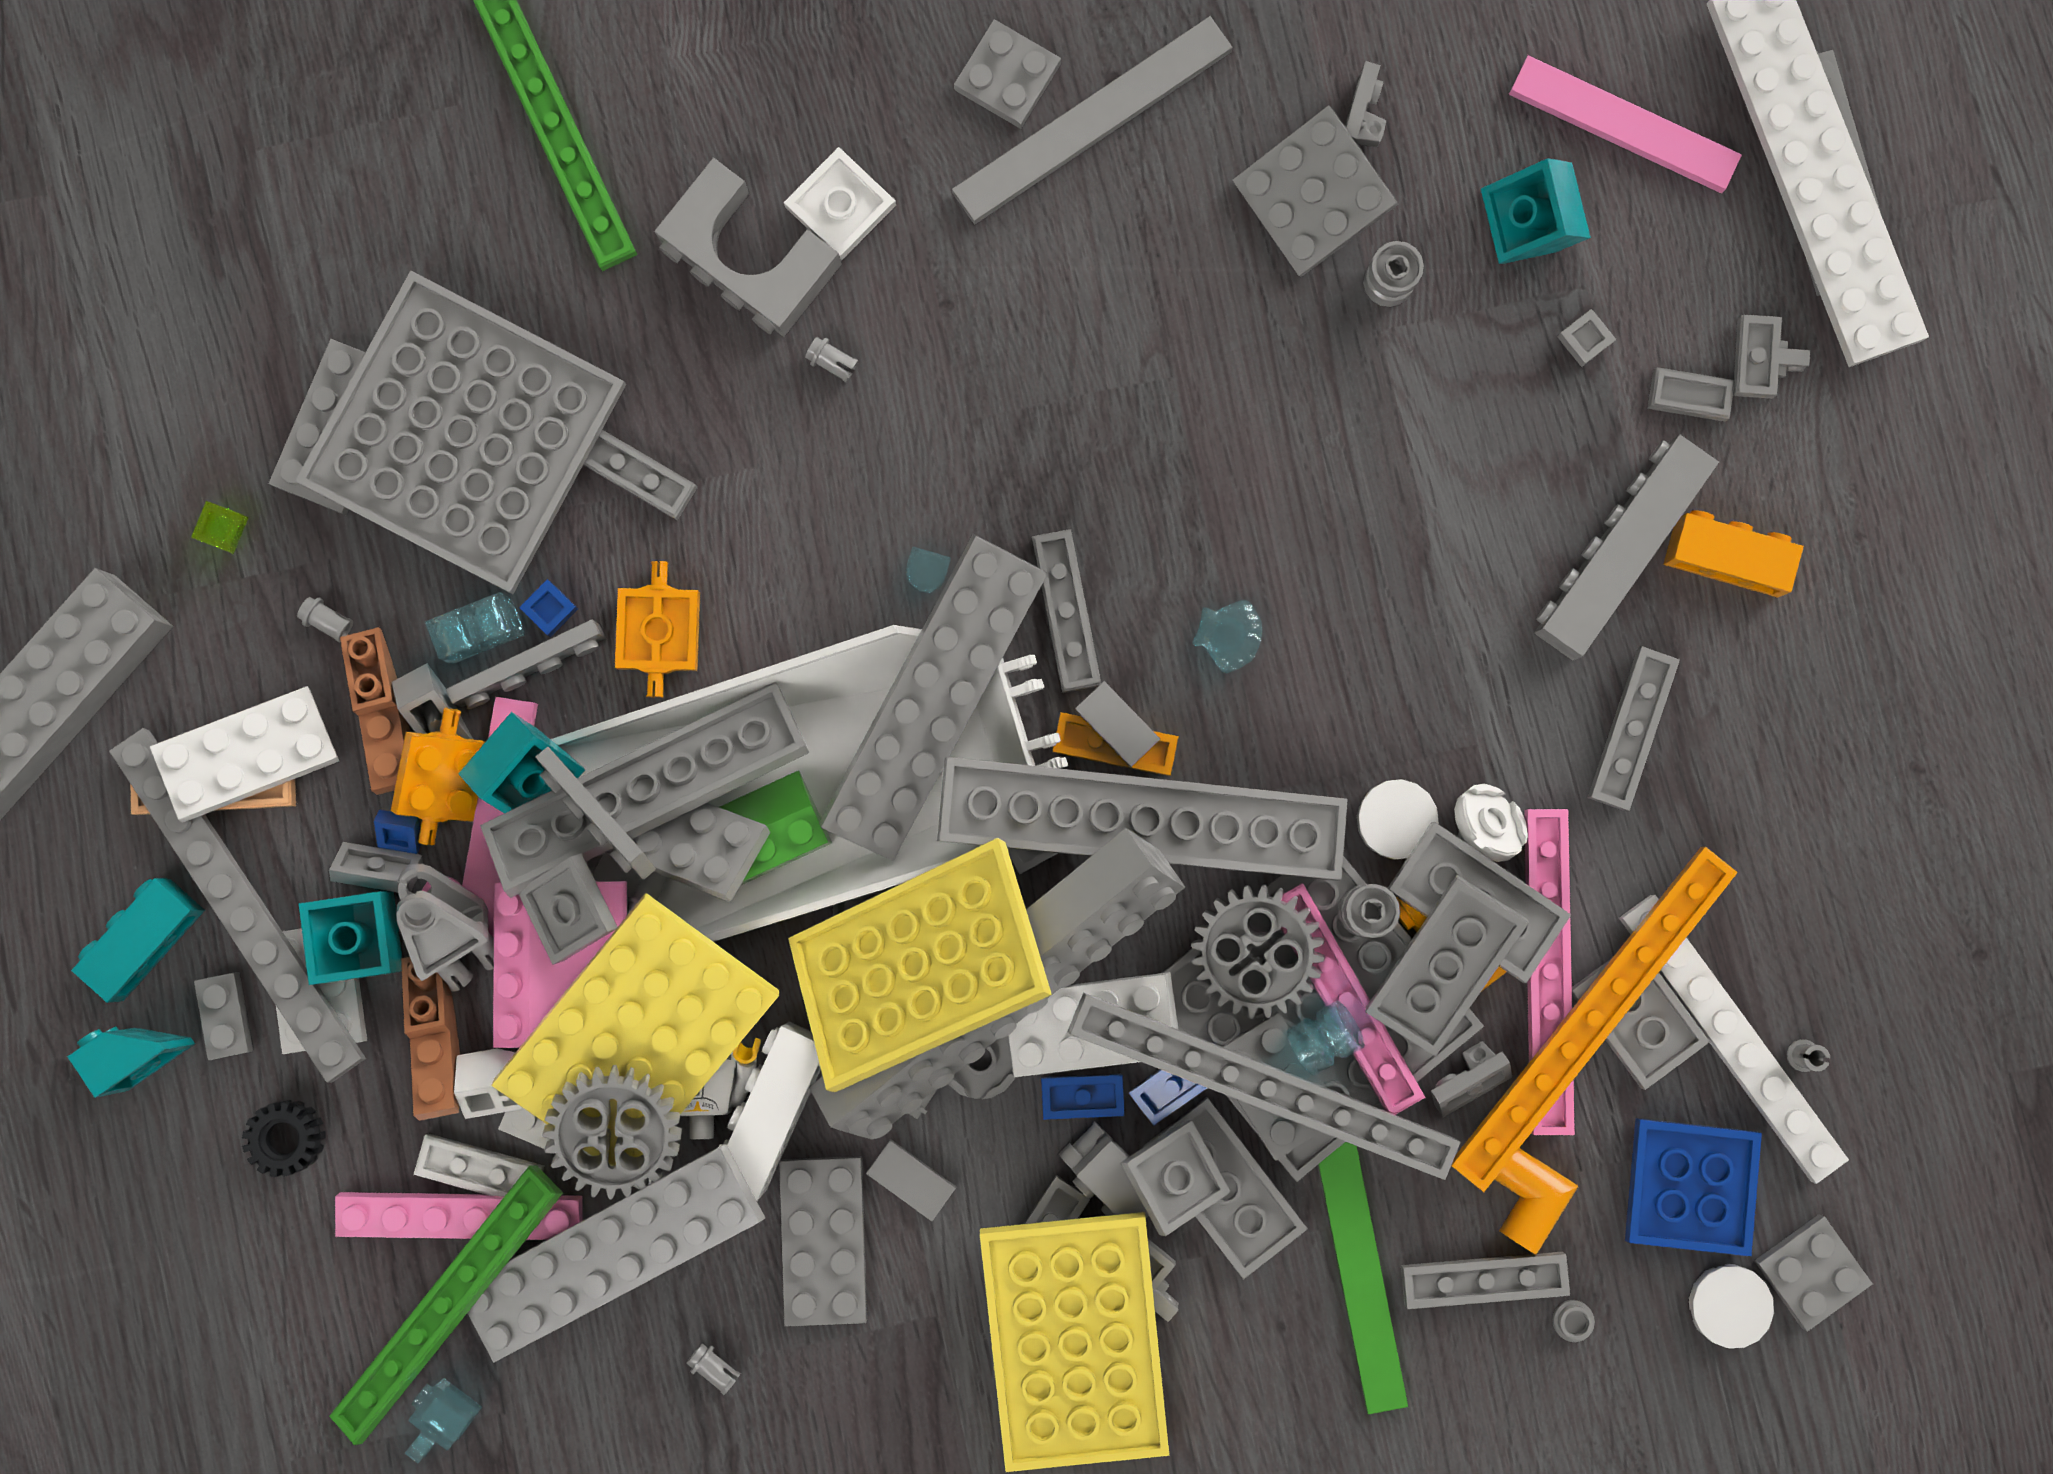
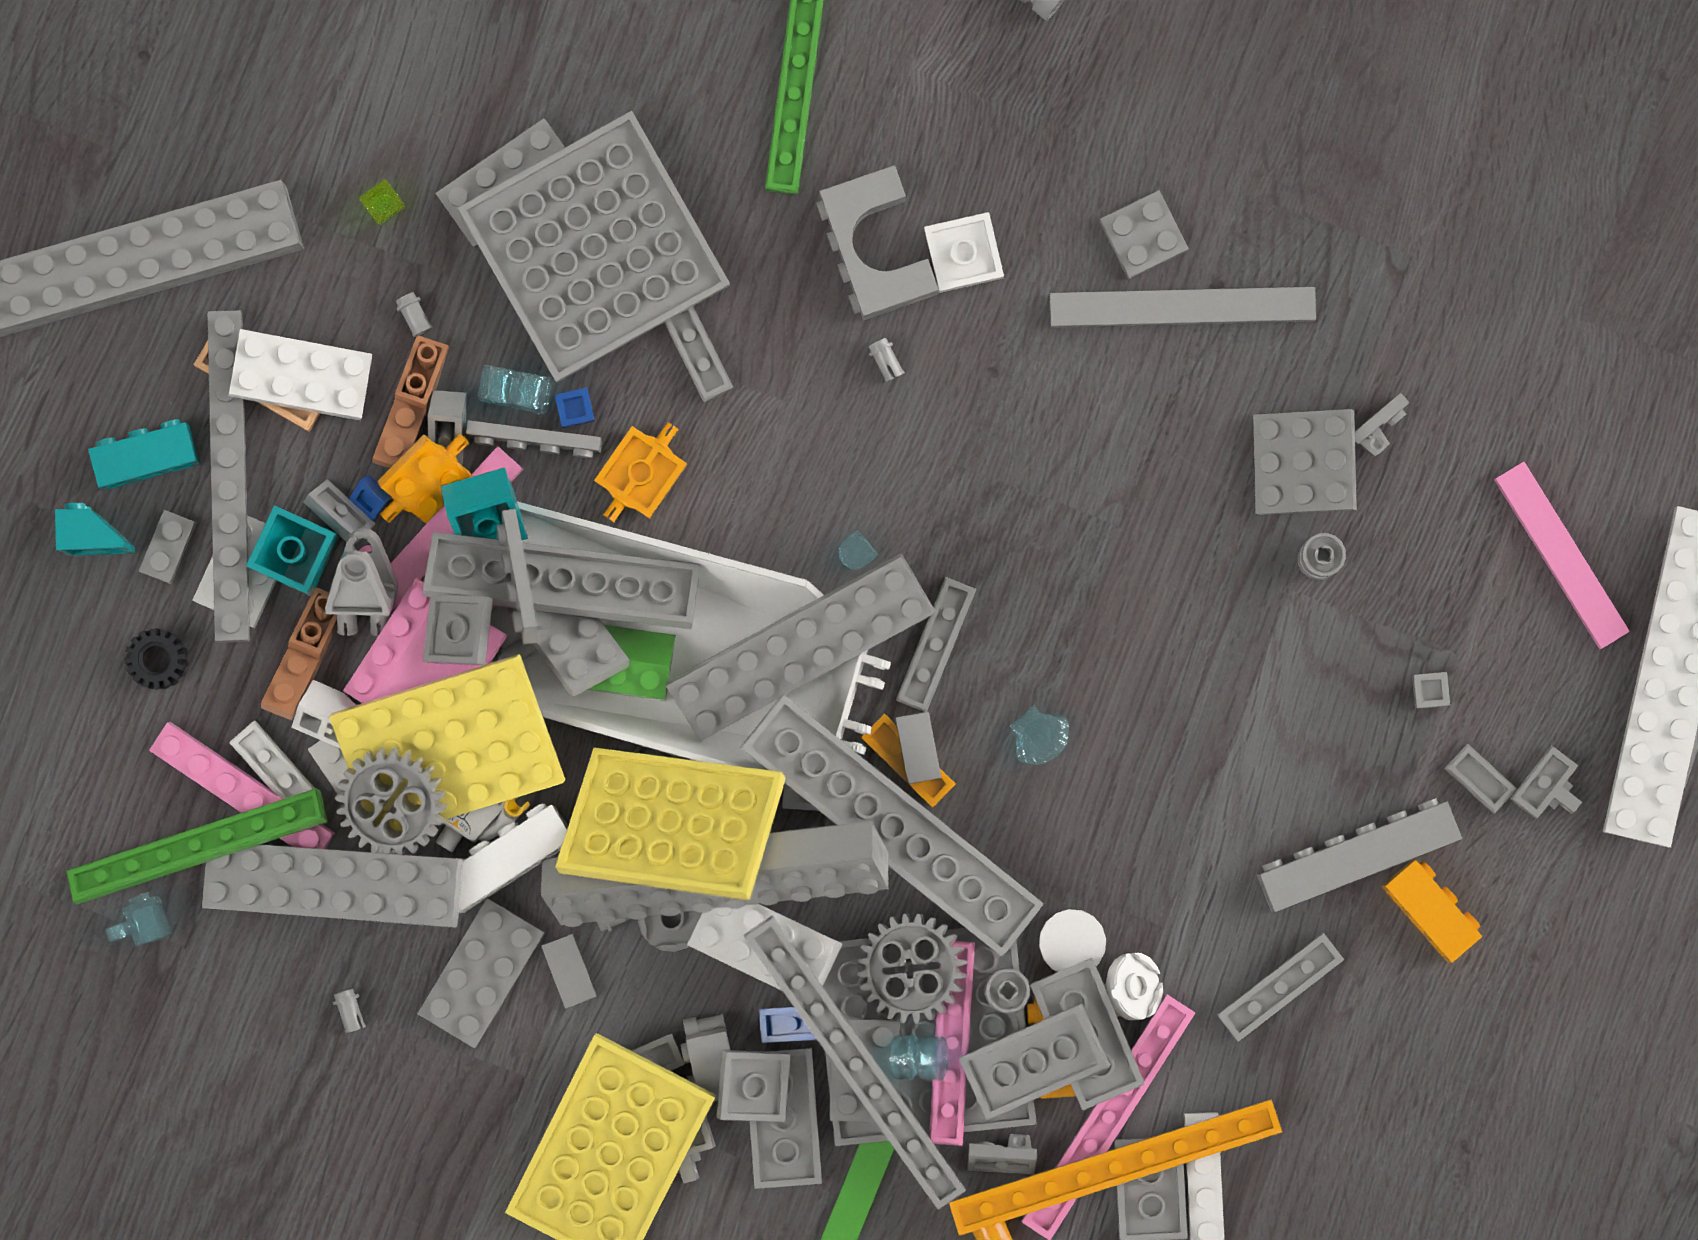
camera: 30 degrees right, 0 degrees up
(1082, 1096) = (725, 990): blue plate -> none
(1535, 211) = (1454, 577): teal slope -> none

